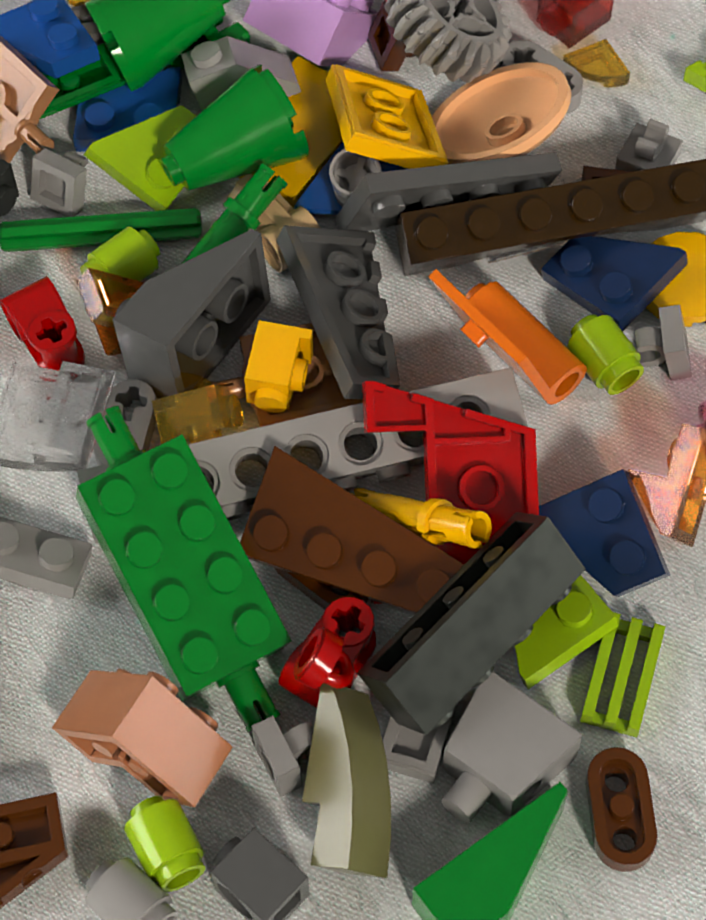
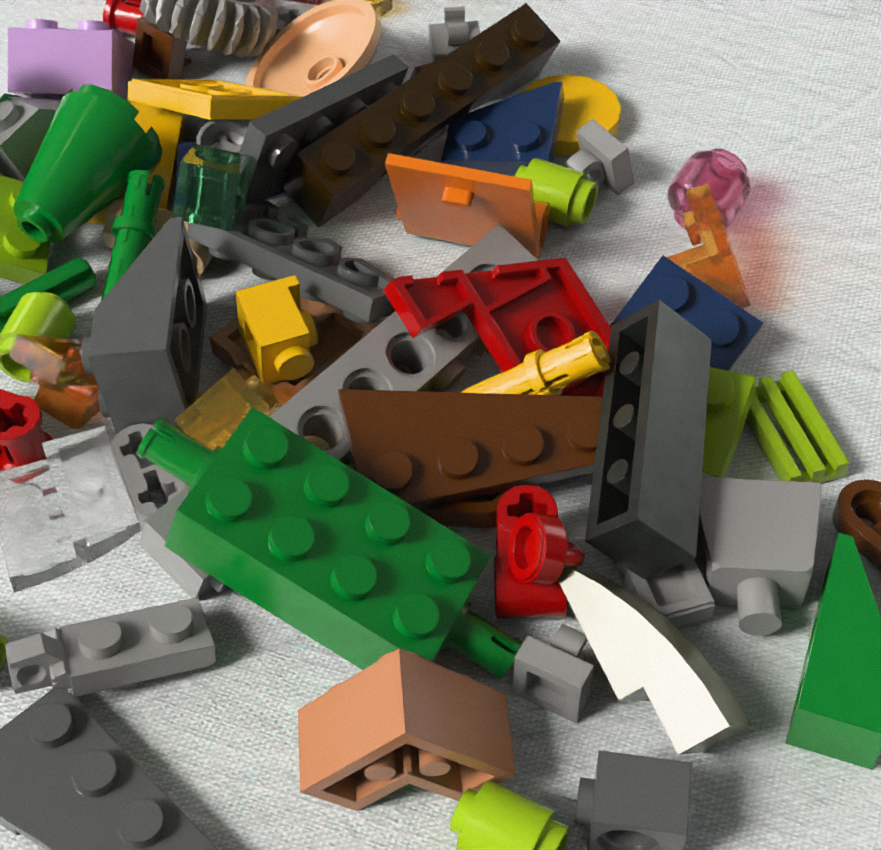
camera: 35 degrees left, 10 degrees down
(311, 212) = (212, 187): none -> clear green brick

